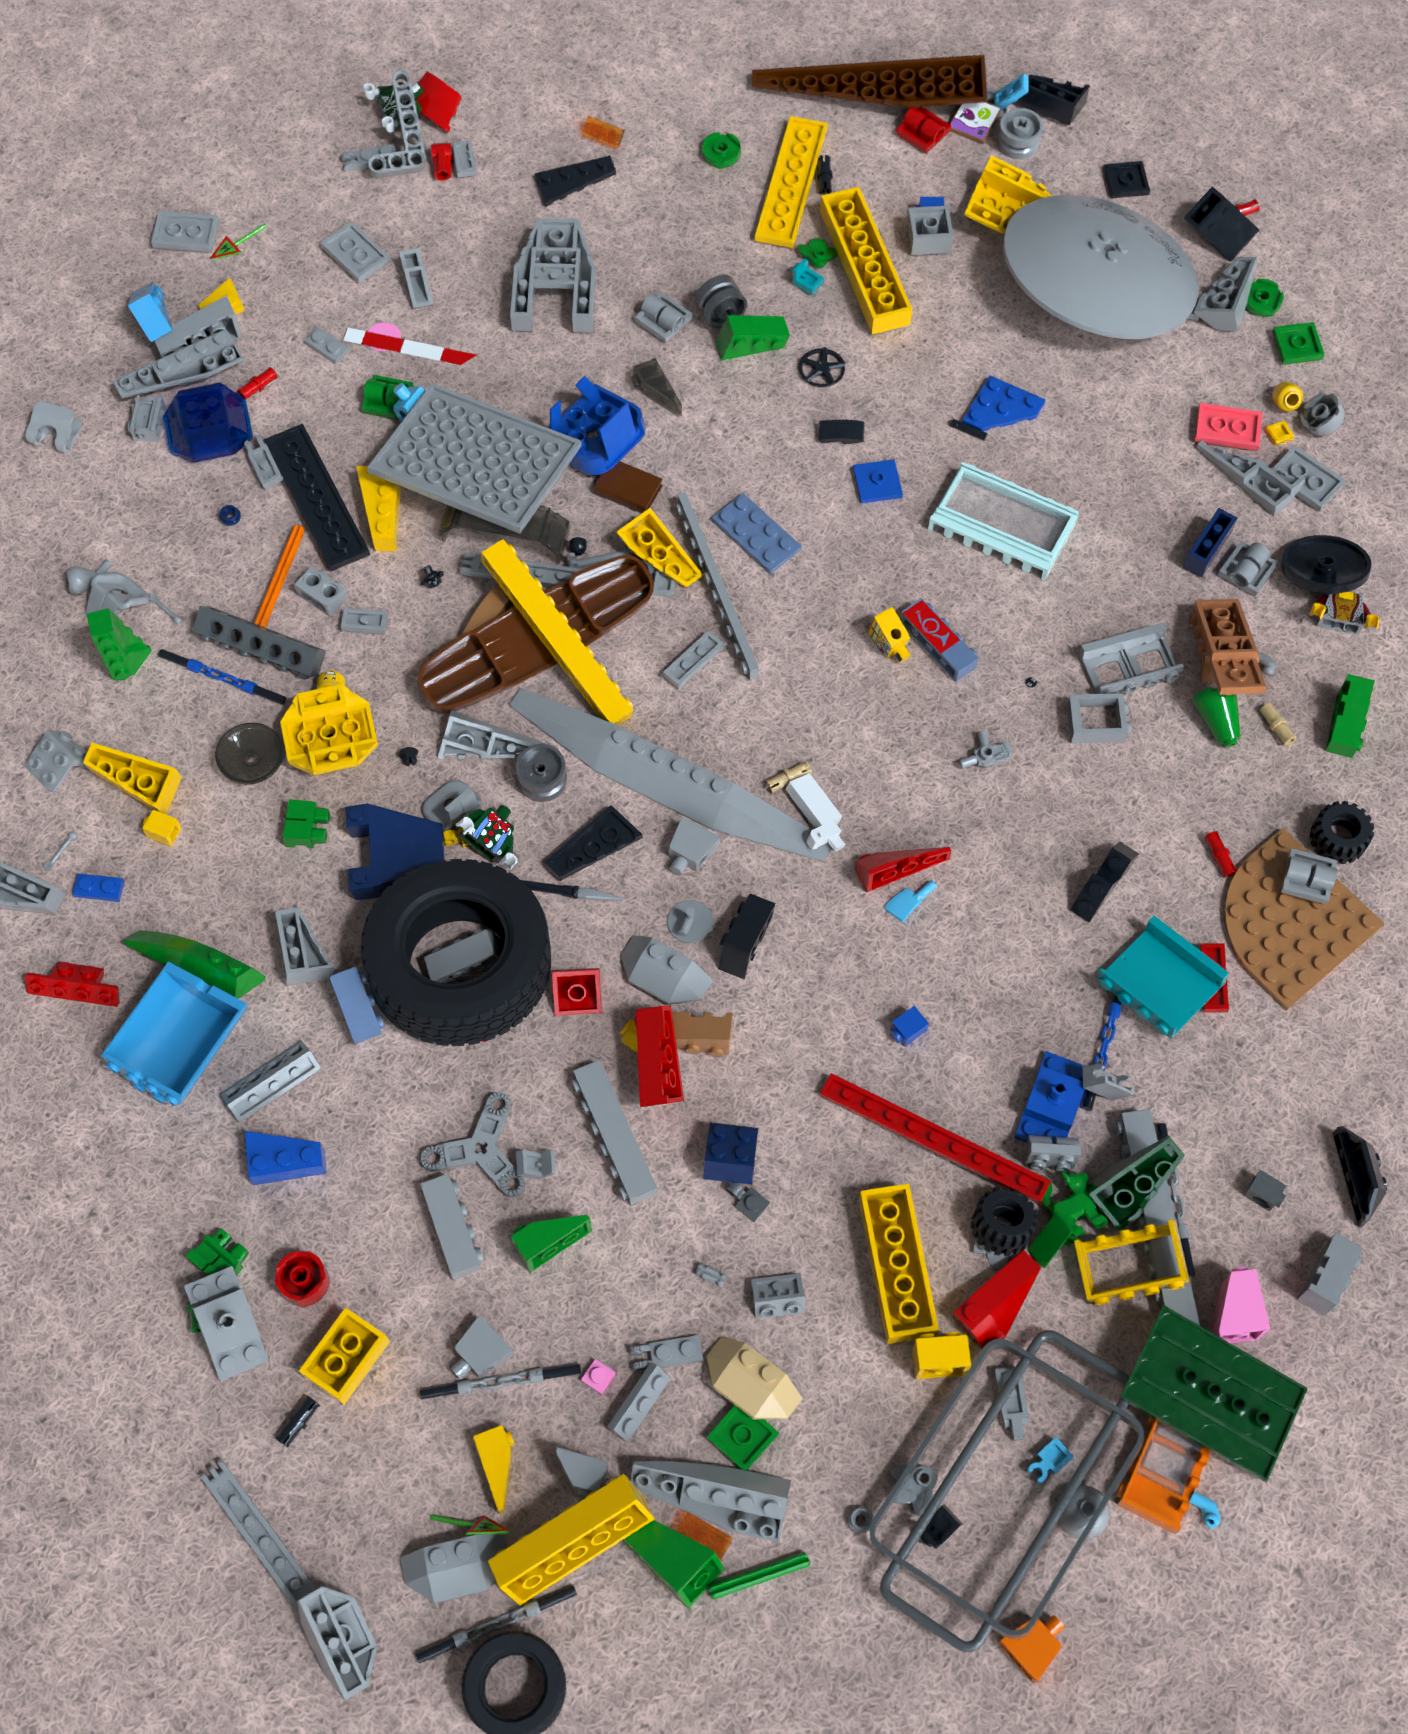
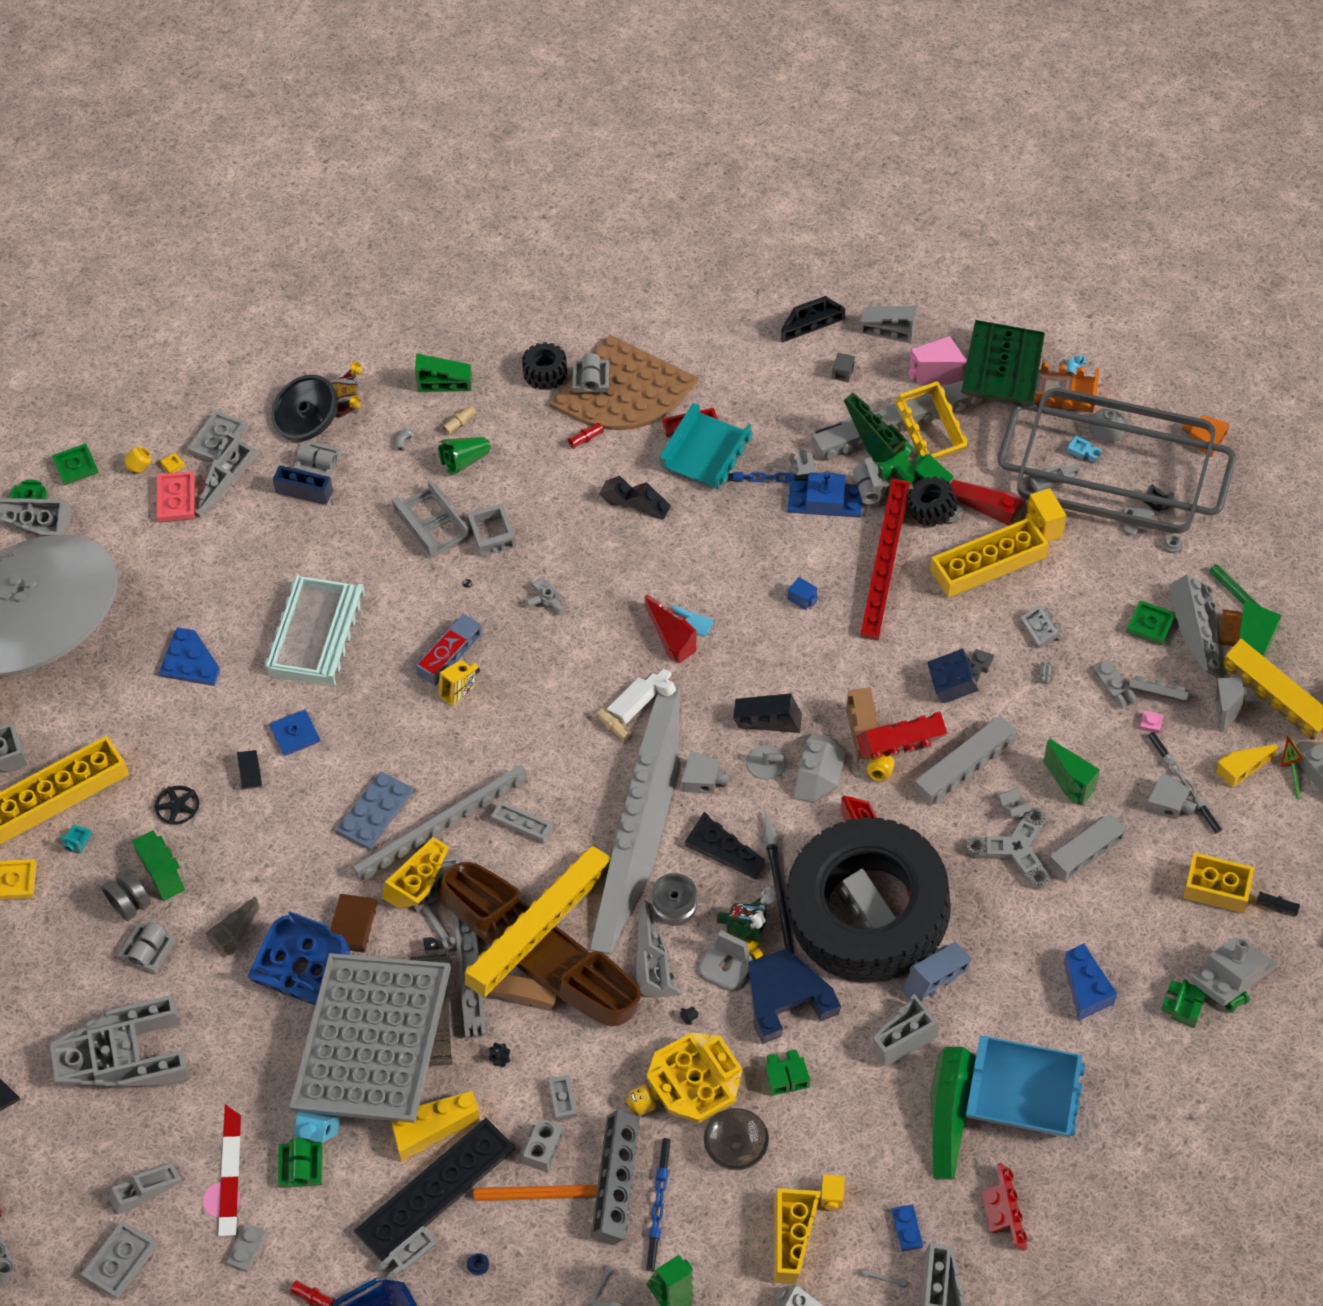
camera: 105 degrees left, 10 degrees down
(269, 1083) = (1028, 1013): light grey fence -> none
(306, 1265) = (1175, 932): red brick -> none
(751, 1381) = (1111, 628): tan wedge -> none
(817, 252) = (39, 840): green plate -> none
(969, 429) = (221, 677): black wheel -> none
(1226, 647) = (409, 450): nougat wedge -> none
(1323, 414) = (153, 431): light grey cylinder -> none

